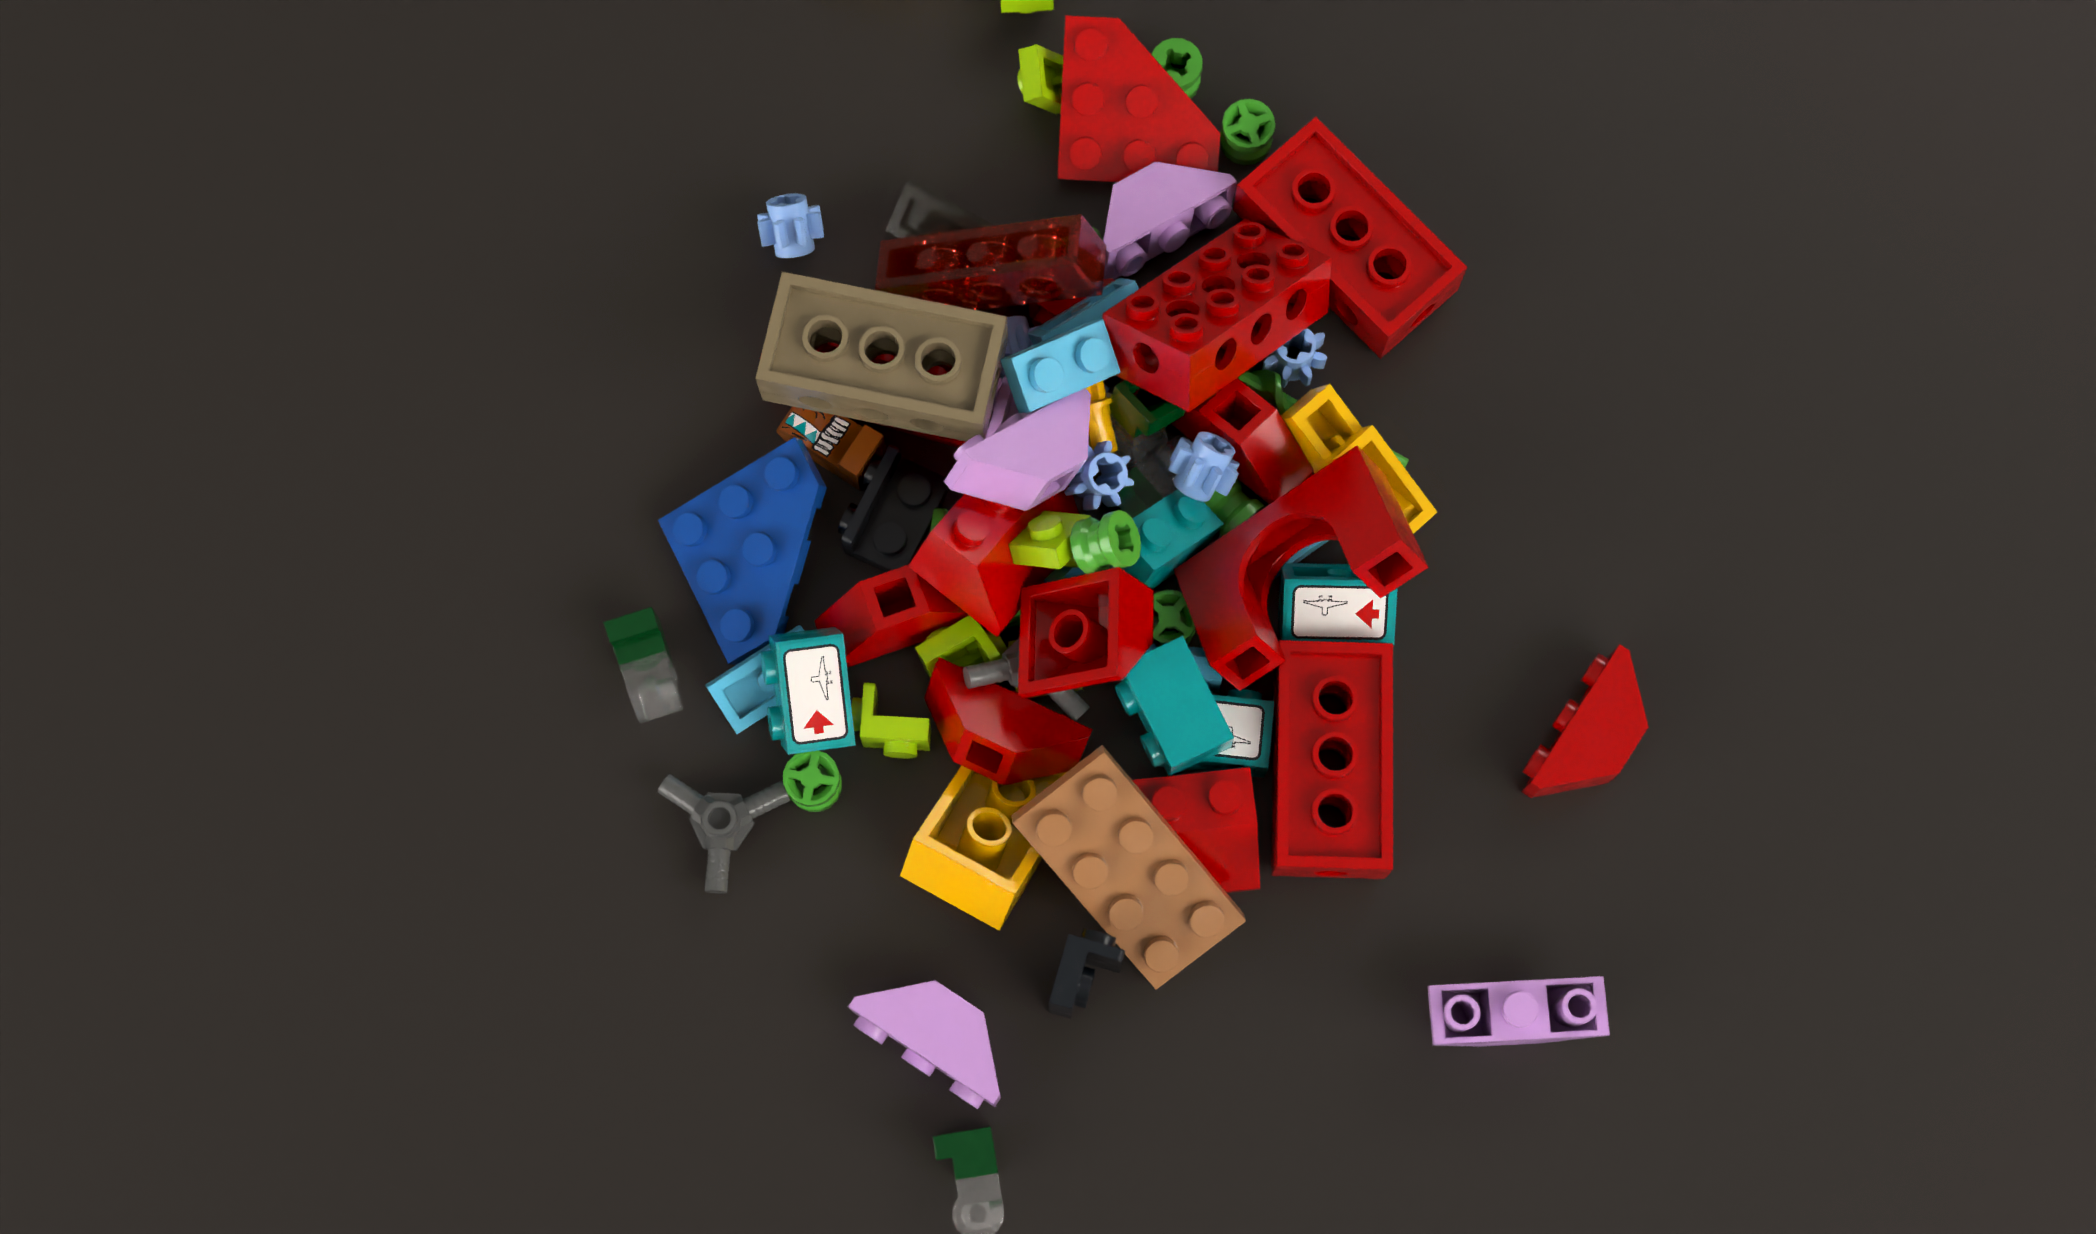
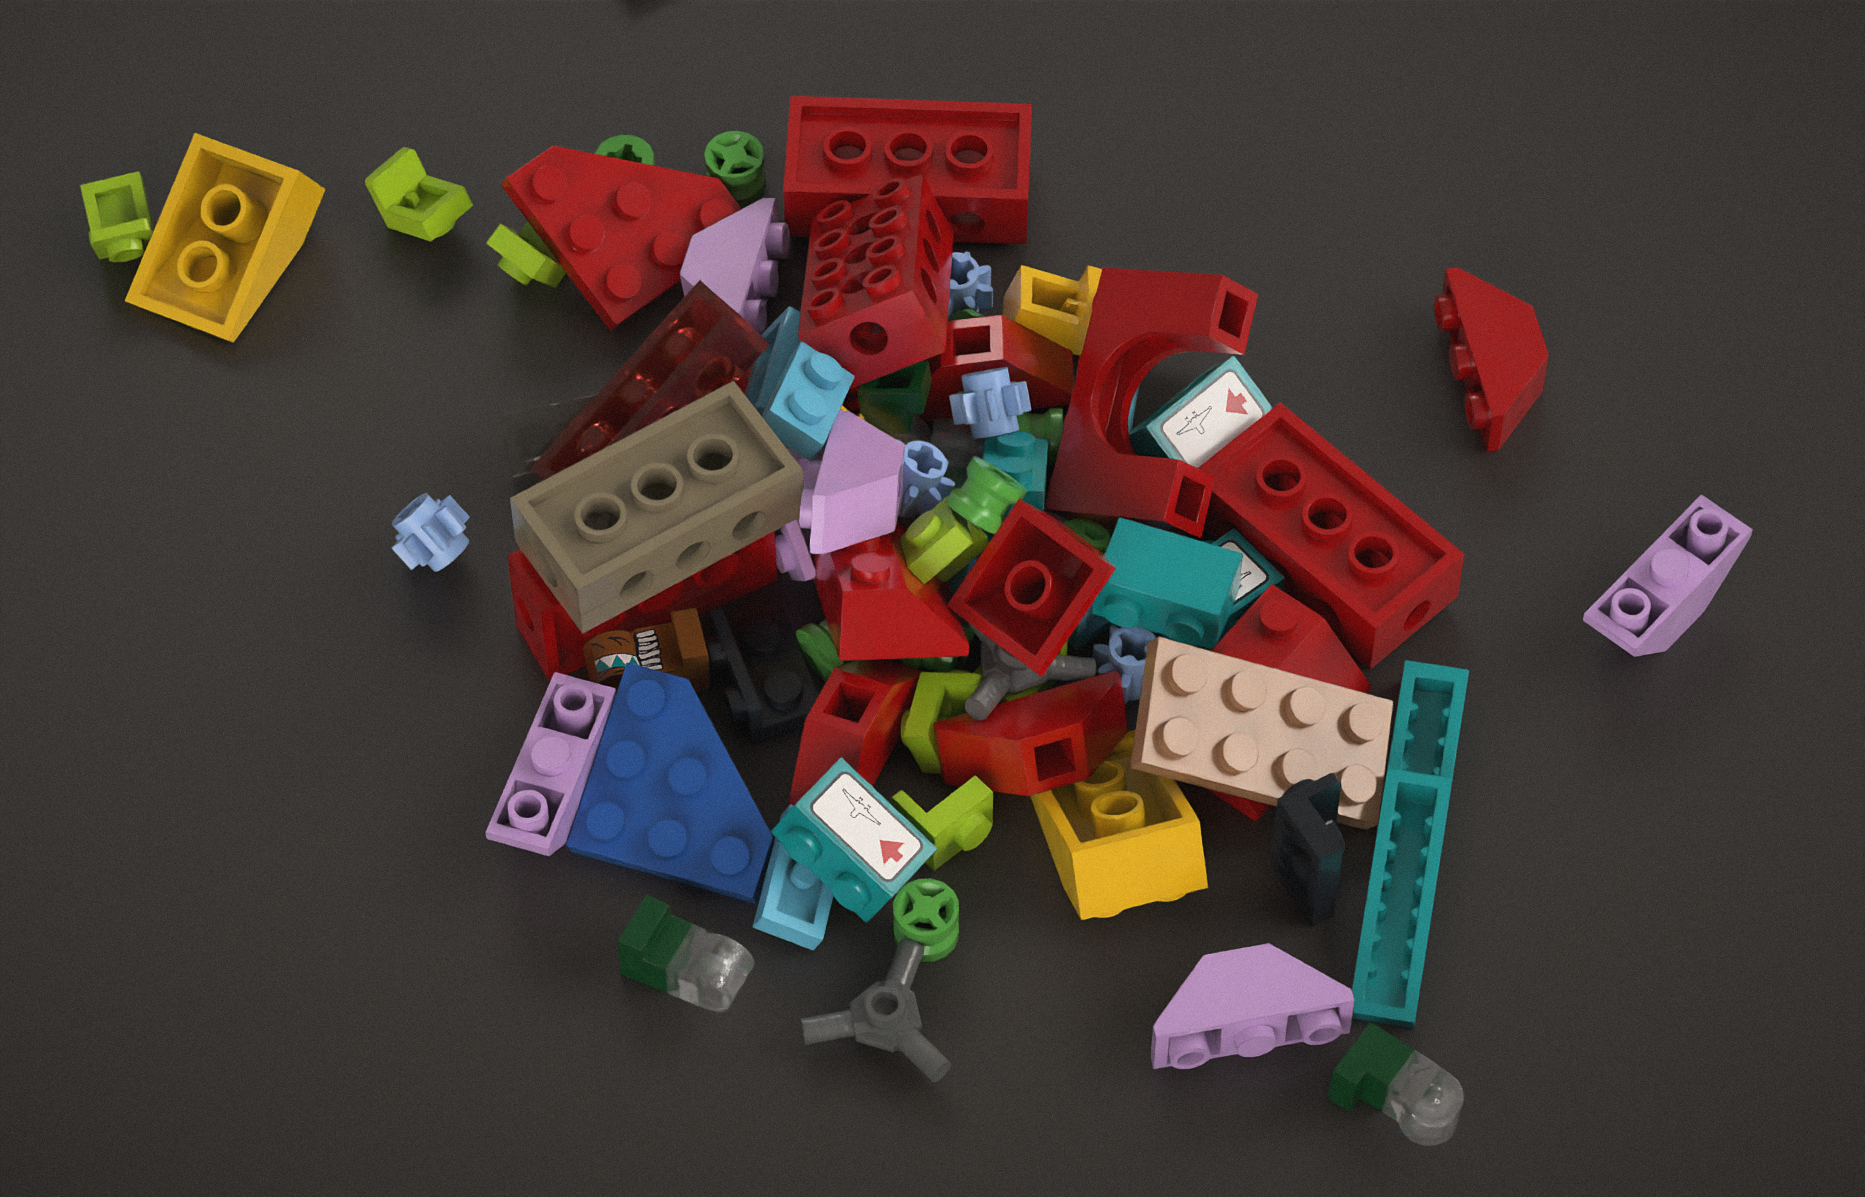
camera: 45 degrees left, 20 degrees down
(684, 465) = (553, 766): none -> lavender slope
(1105, 736) = (1125, 655): none -> light blue gear
(1161, 1021) = (1409, 844): none -> teal slope

